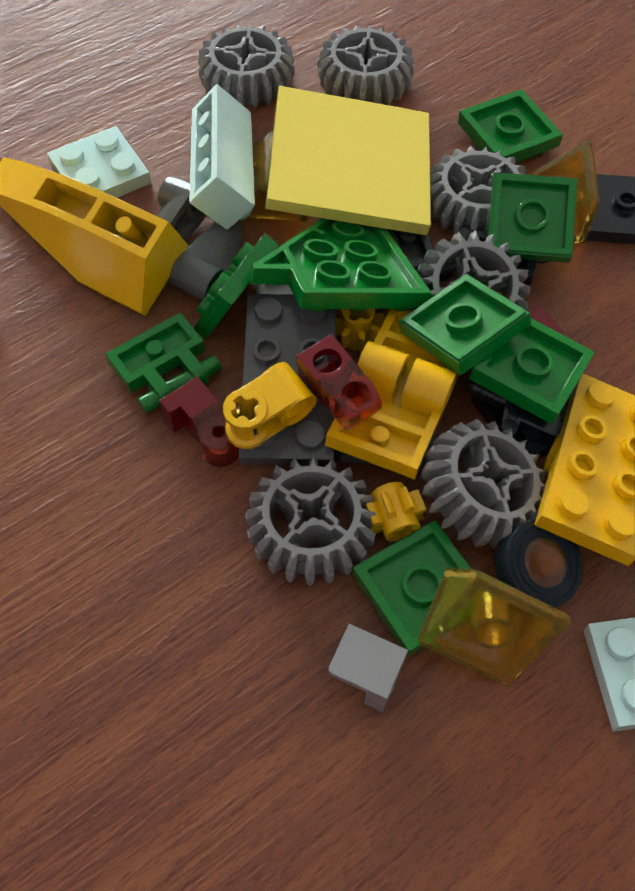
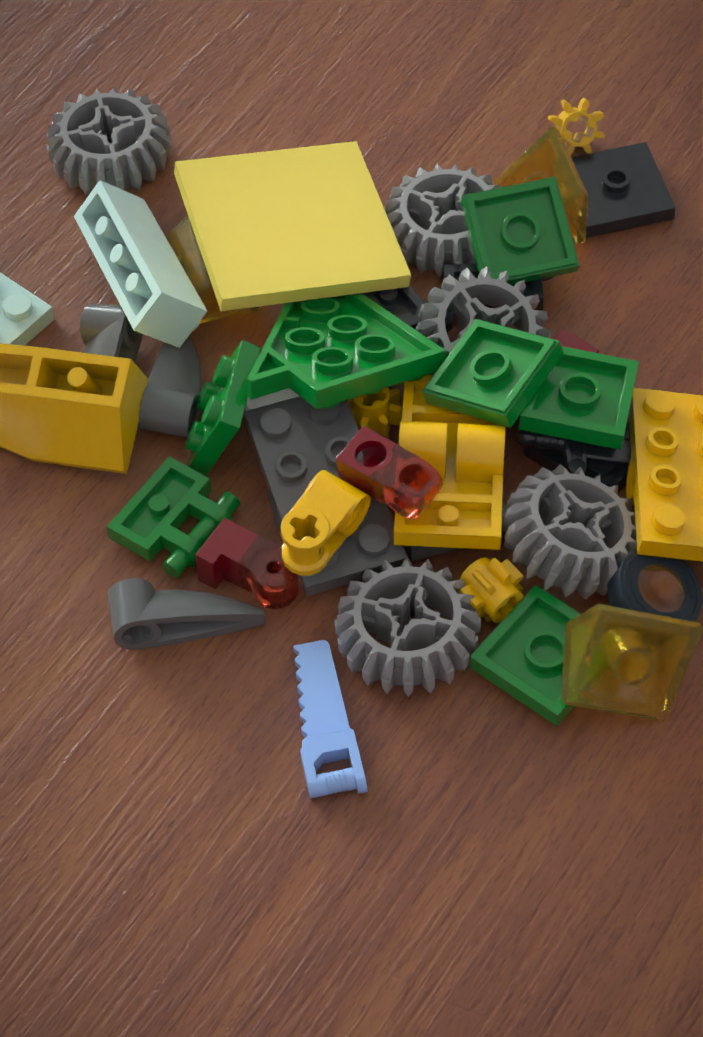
camera: 15 degrees left, 5 degrees down
(109, 441) = (168, 617): none -> dark grey piece
(208, 585) = (325, 724): none -> light blue piece
(366, 65) = (254, 101): light grey gear -> none
(368, 665) = (524, 737): light grey panel -> none
(510, 125) = (453, 128): green plate -> none
(619, 147) = (572, 114): none -> yellow gear

